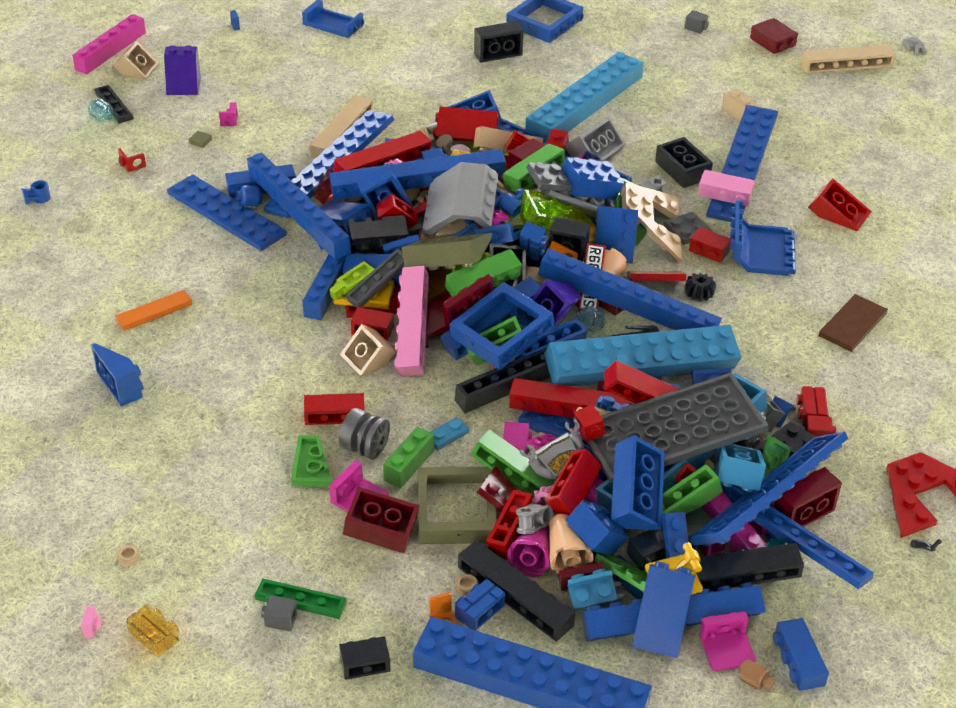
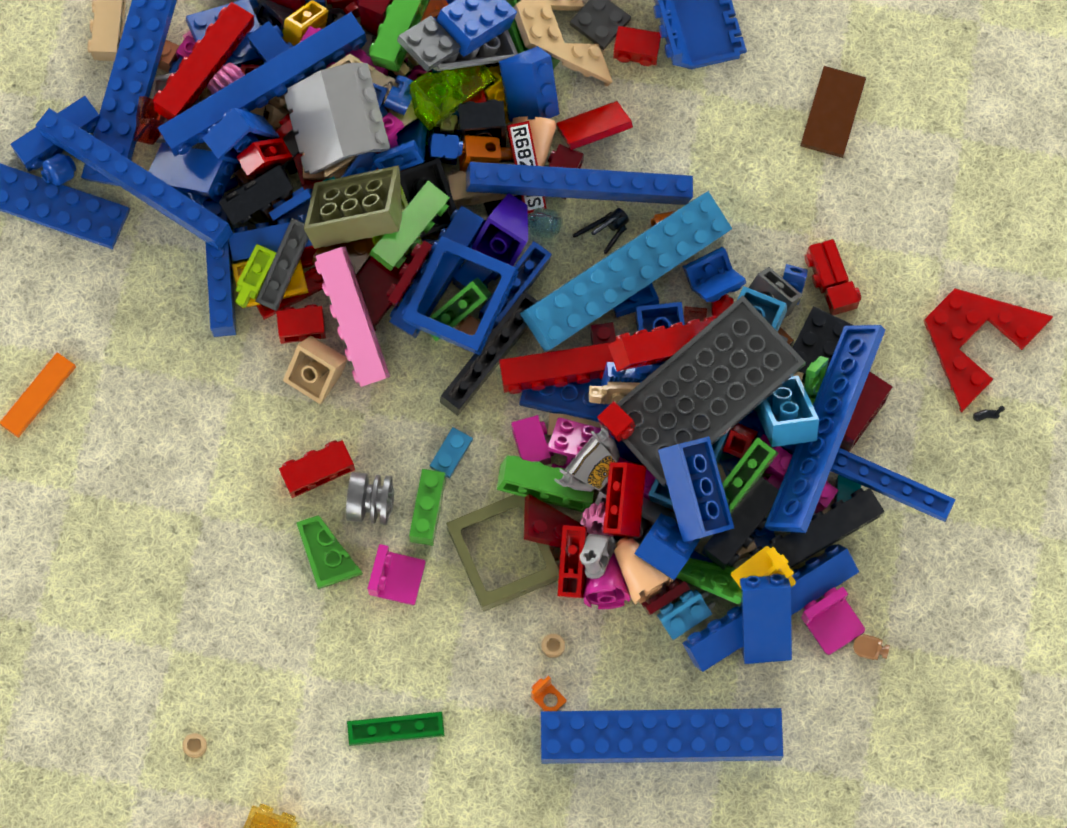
camera: 20 degrees left, 30 degrees up
(118, 374) = (60, 519): blue slope -> none
(279, 613) = (385, 758): dark grey brick -> none
(364, 657) = (492, 776): black brick -> none
(381, 520) = (438, 608): dark red brick -> none
(479, 604) = (578, 669): blue brick -> none
(521, 593) = (605, 636): black brick -> none
(674, 533) = (750, 529): blue plate -> none
(700, 286) = (648, 129): black gear -> none
(800, 654) = (904, 606): blue brick -> none

